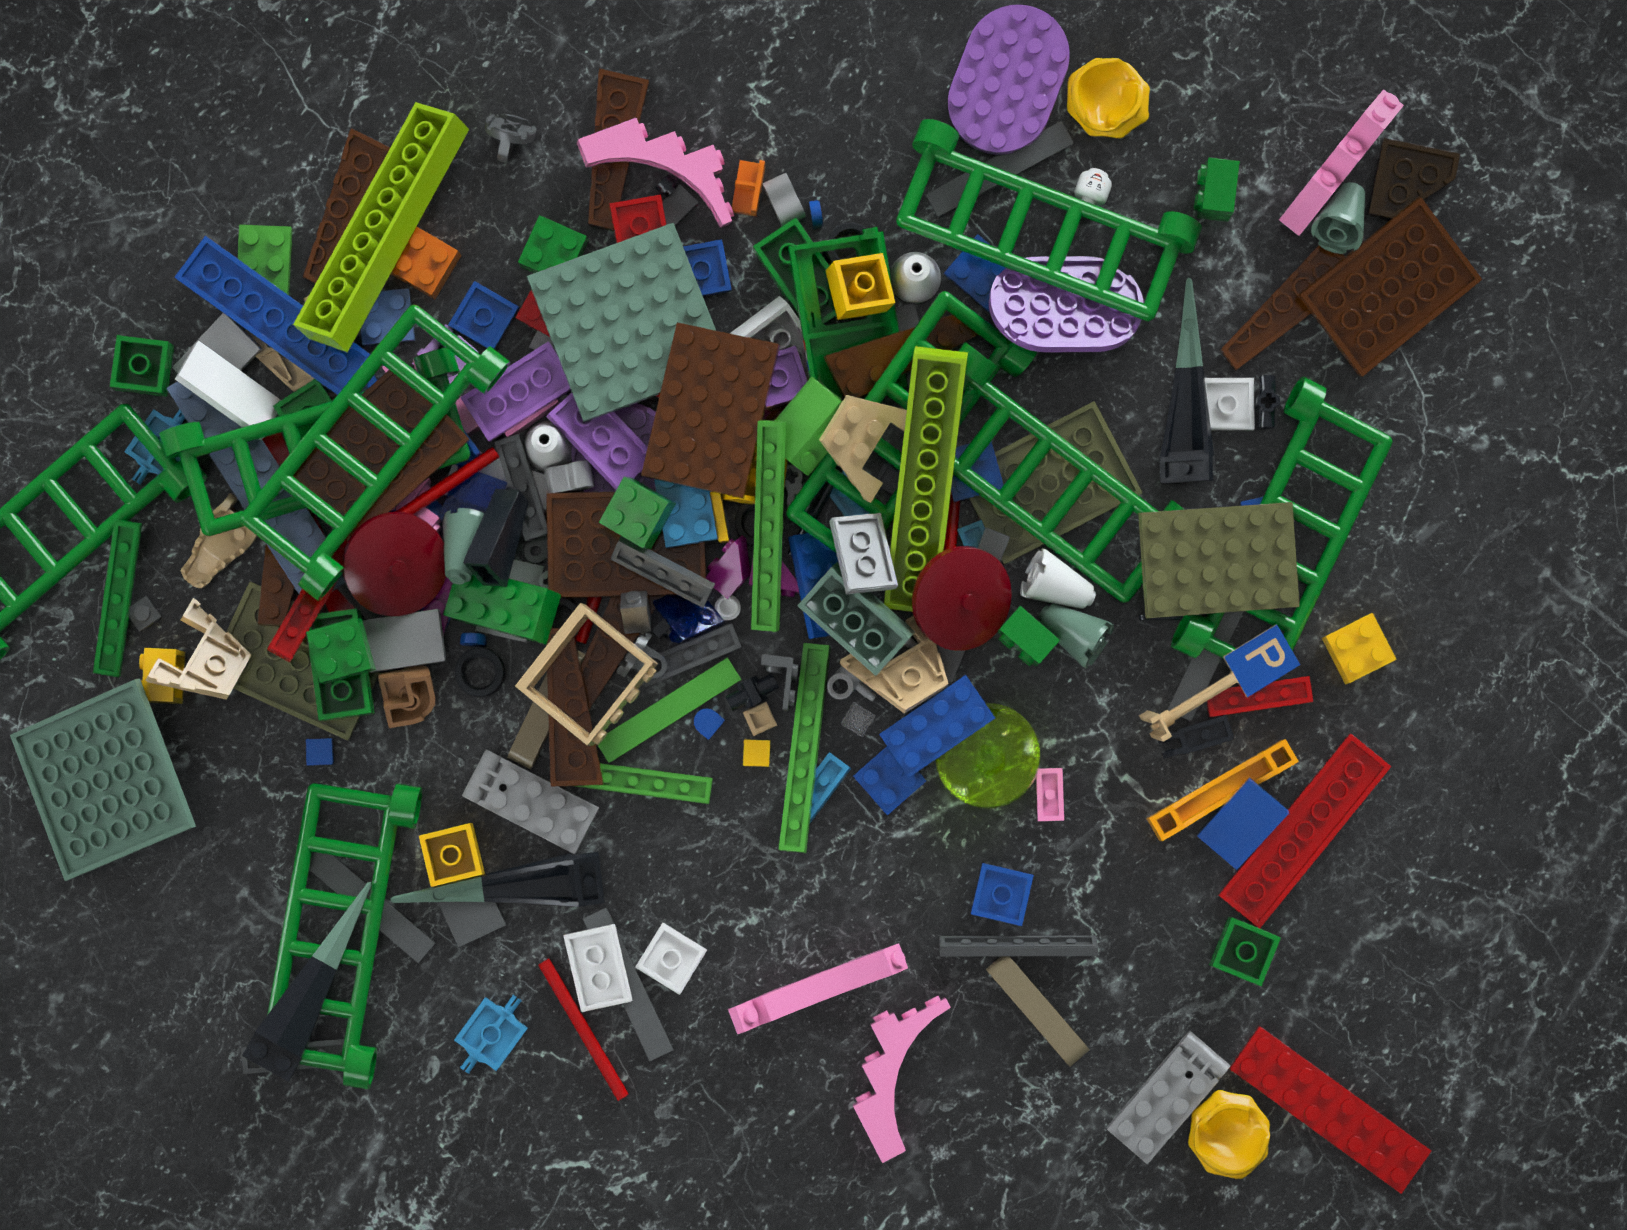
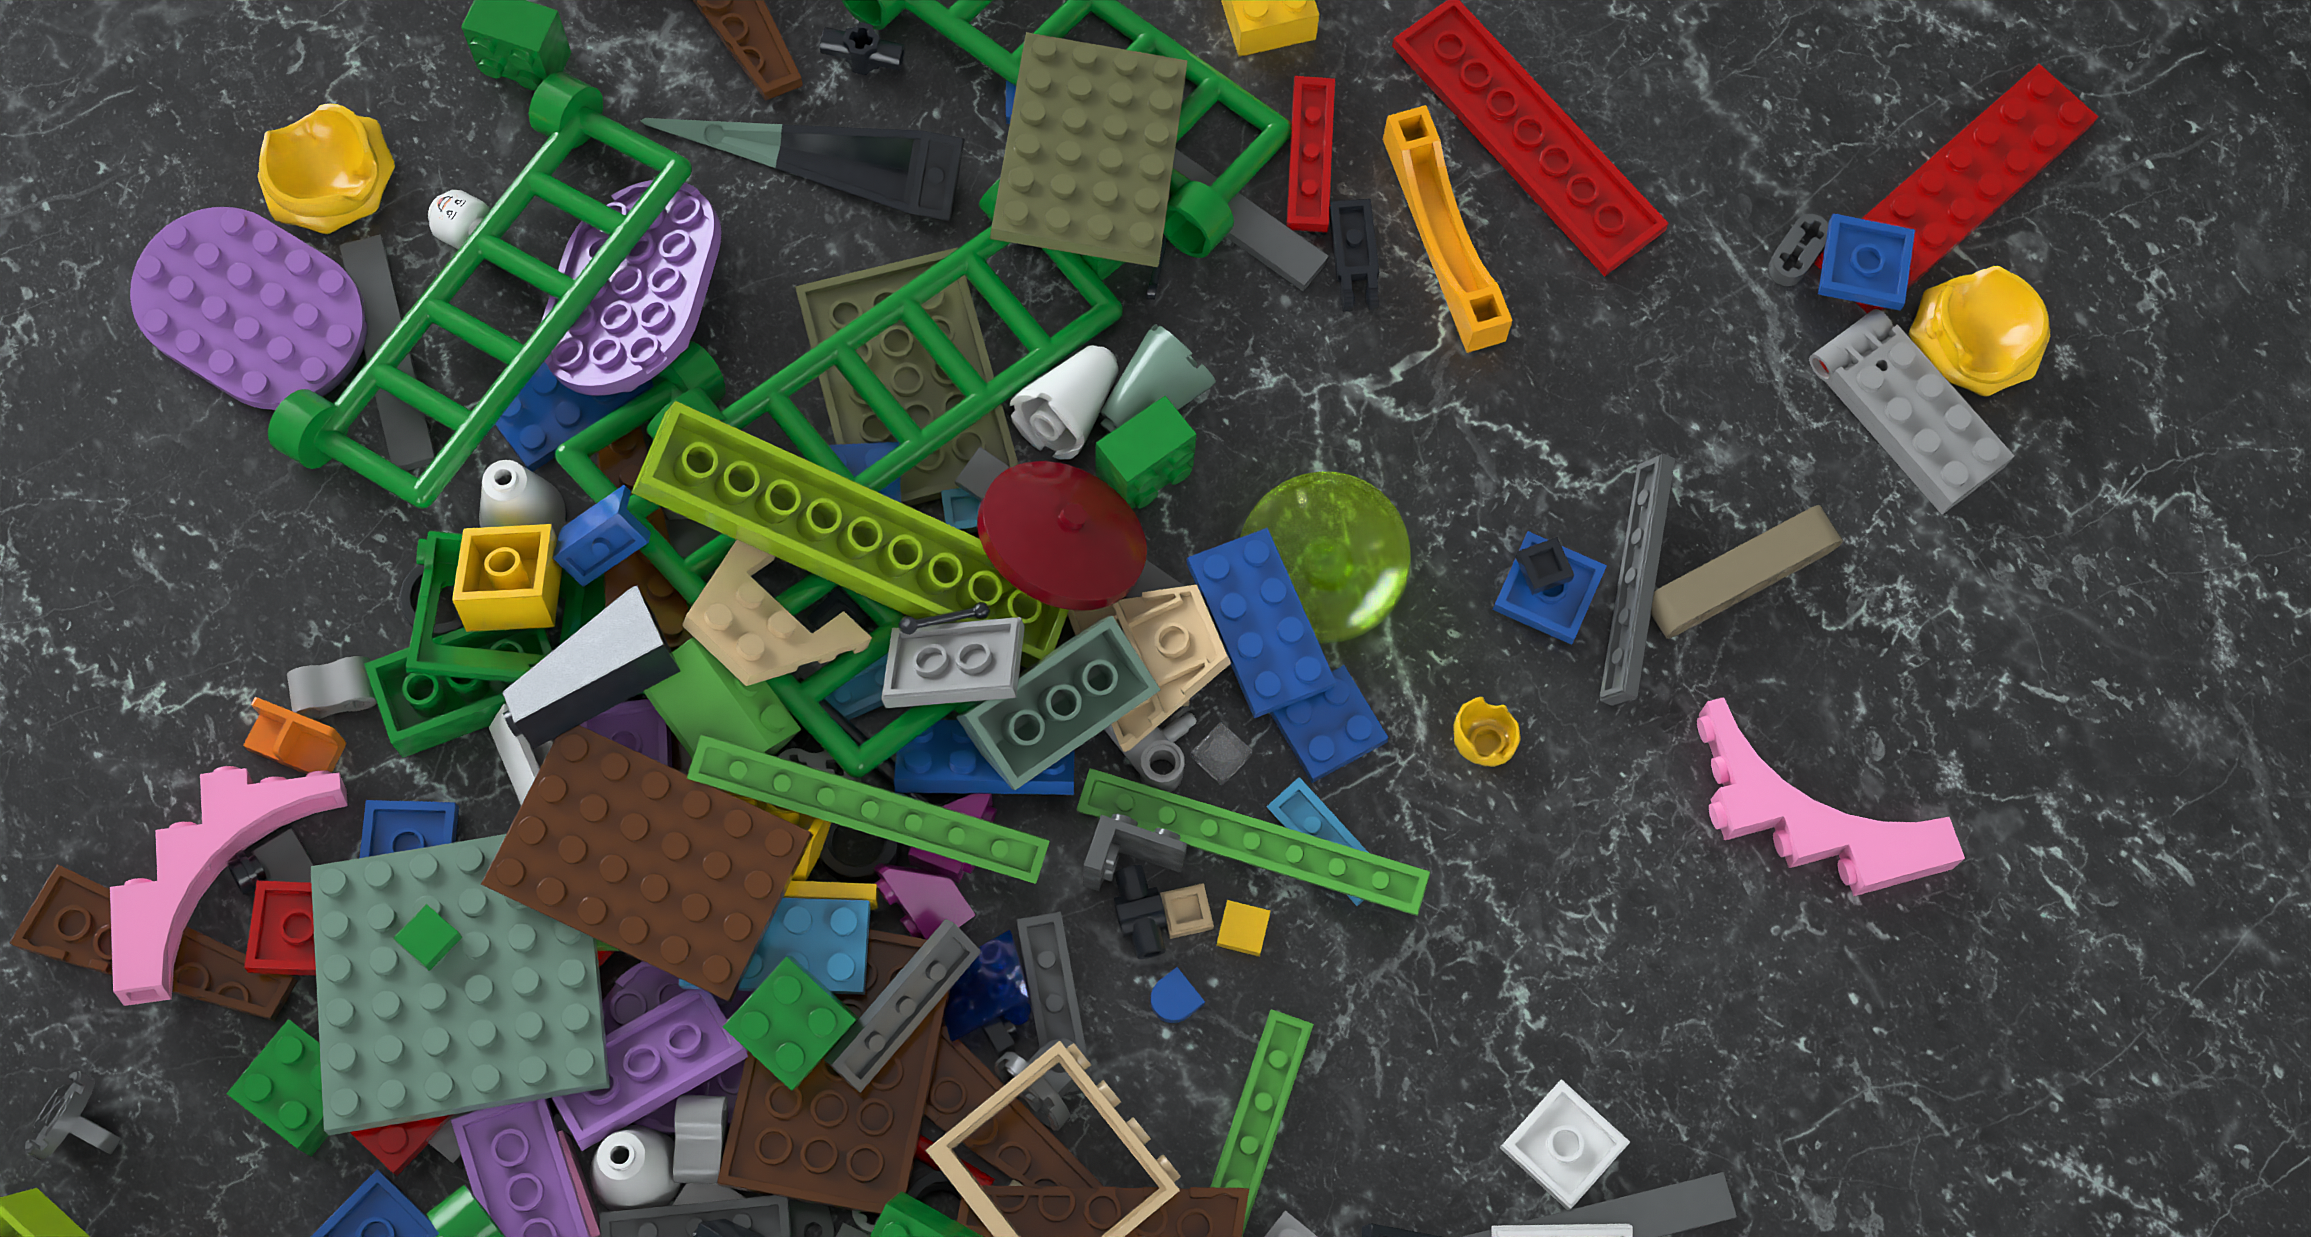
camera: 85 degrees left, 15 degrees down
(635, 612) = (961, 1069): flat silver brick -> none
(642, 301) = (427, 937): none -> green tile
(669, 710) = (1139, 1055): bright green tile -> none
(729, 608) = (988, 923): white plate -> none
(808, 352) = (591, 671): none -> slope
(816, 214) = (370, 642): blue tile -> none
(818, 988) = (1655, 896): bright pink arch -> none
(879, 522) = (909, 625): none -> black hinge
(895, 331) = (600, 538): none -> blue panel
(901, 871) = (1486, 733): none -> yellow hair
(1009, 888) = (1544, 565): none -> black plate
(1050, 794) = (1406, 481): bright pink plate -> none
(1230, 403) = (851, 97): white tile -> none
(1243, 823) = (1503, 211): blue tile -> none
(1244, 951) = (1701, 248): green brick -> none
(1251, 666) = (1267, 146): piece -> none
(1256, 1055) = (1866, 262): none -> blue plate
(1261, 1020) = (1806, 254): none -> dark grey beam

